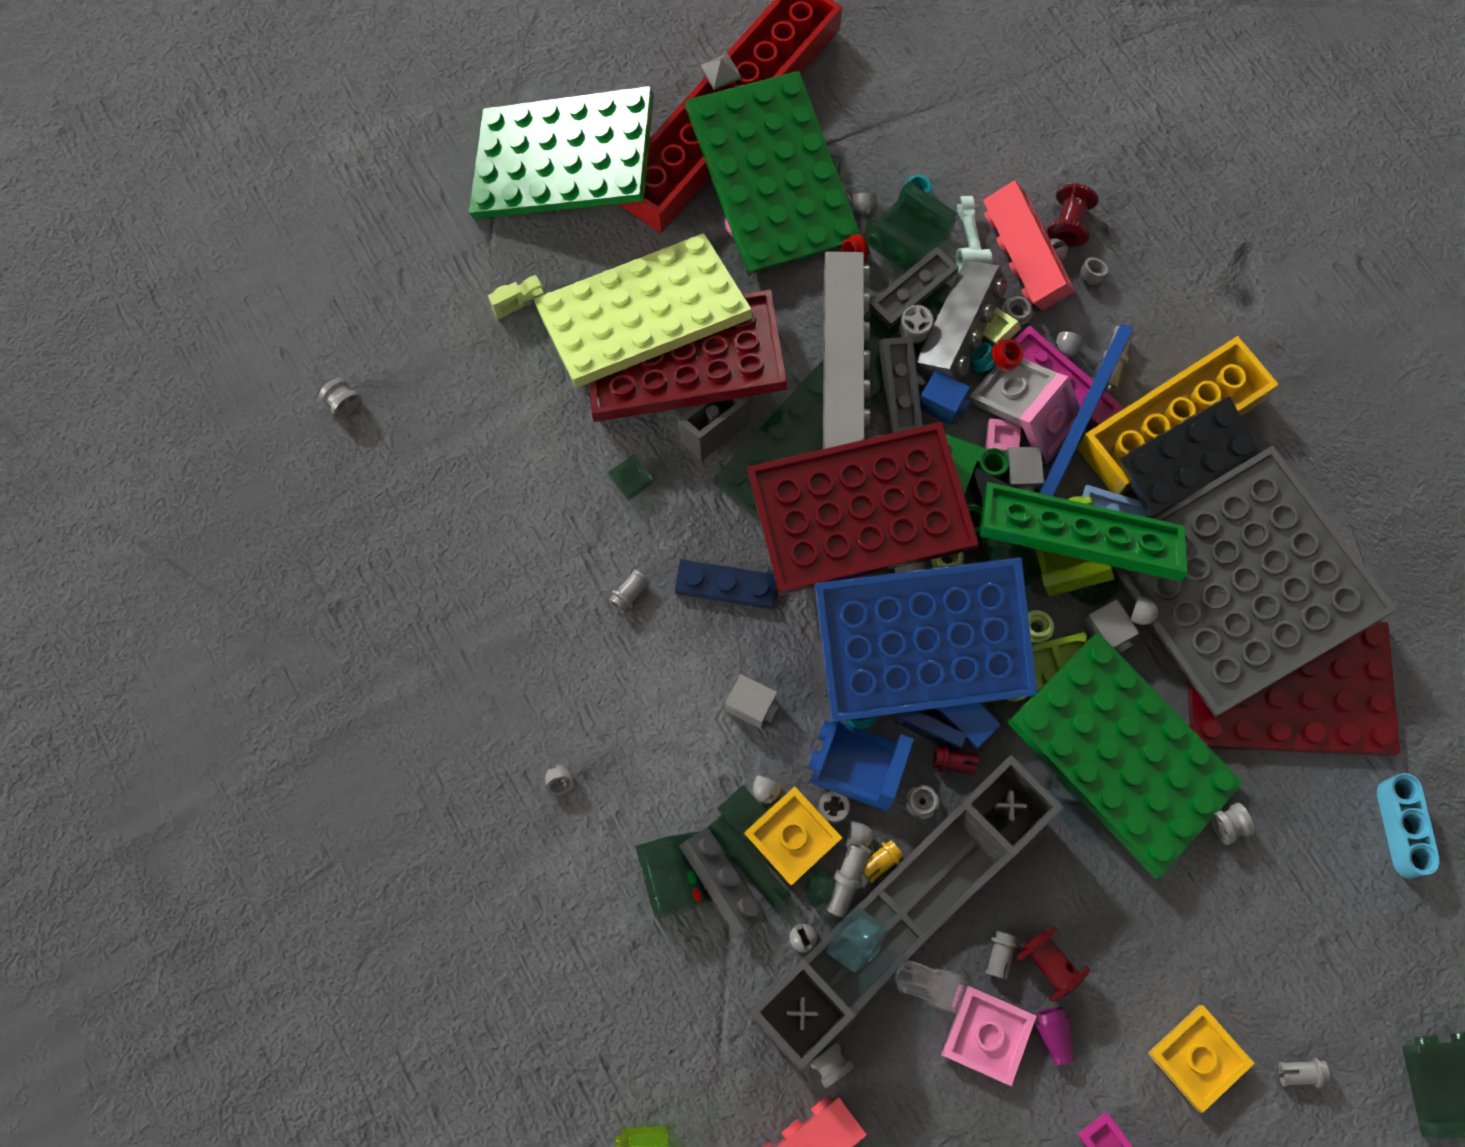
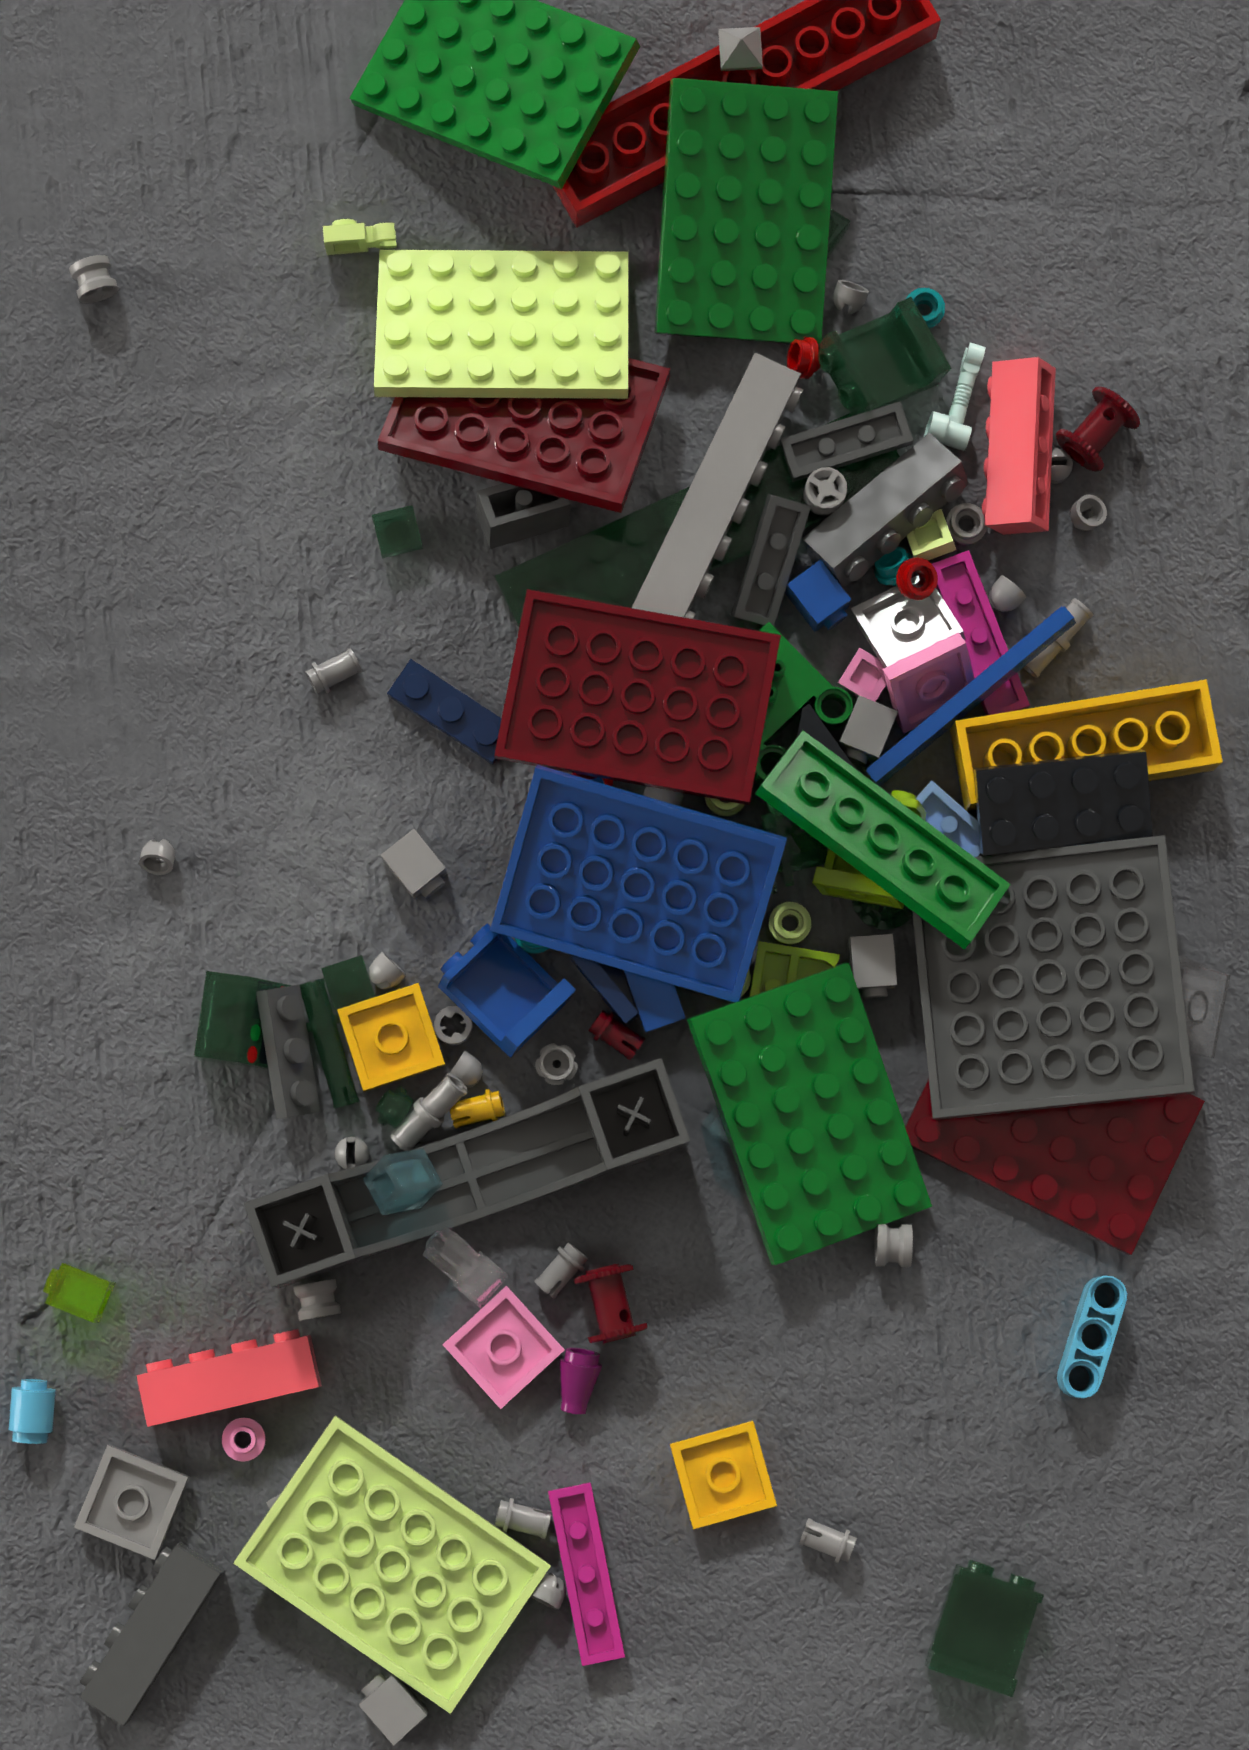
camera: 20 degrees right, 10 degrees up
(1144, 611) = (912, 962): light grey hinge -> none

